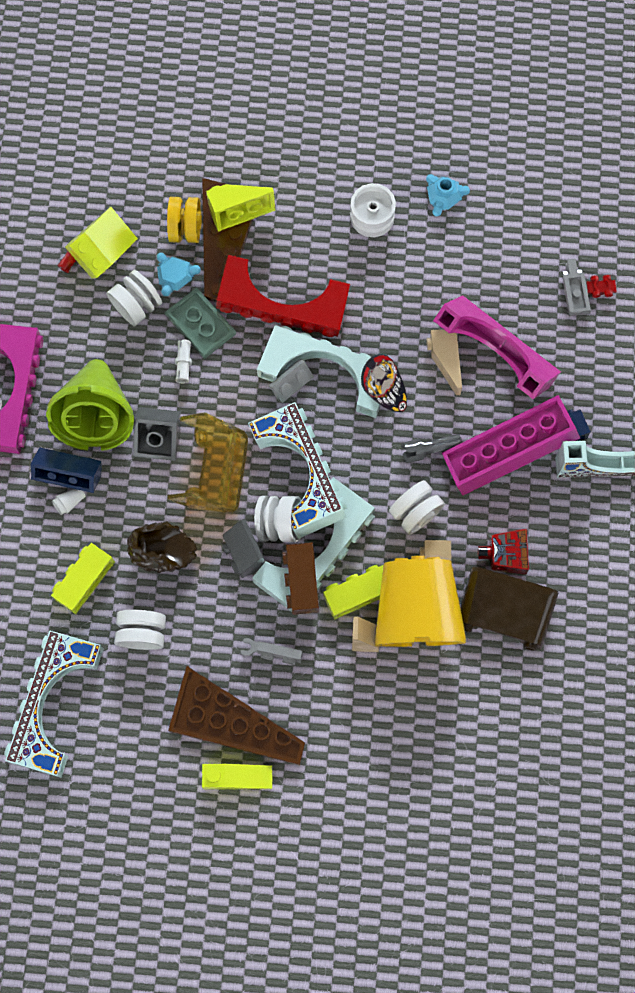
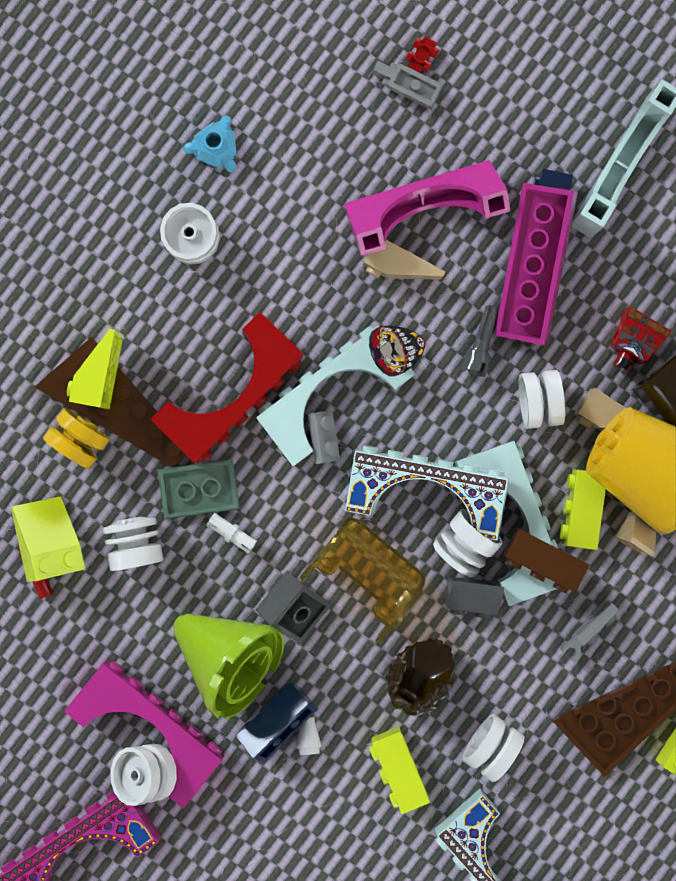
camera: 55 degrees left, 15 degrees up
(174, 273) = (130, 484): medium azure rock -> none

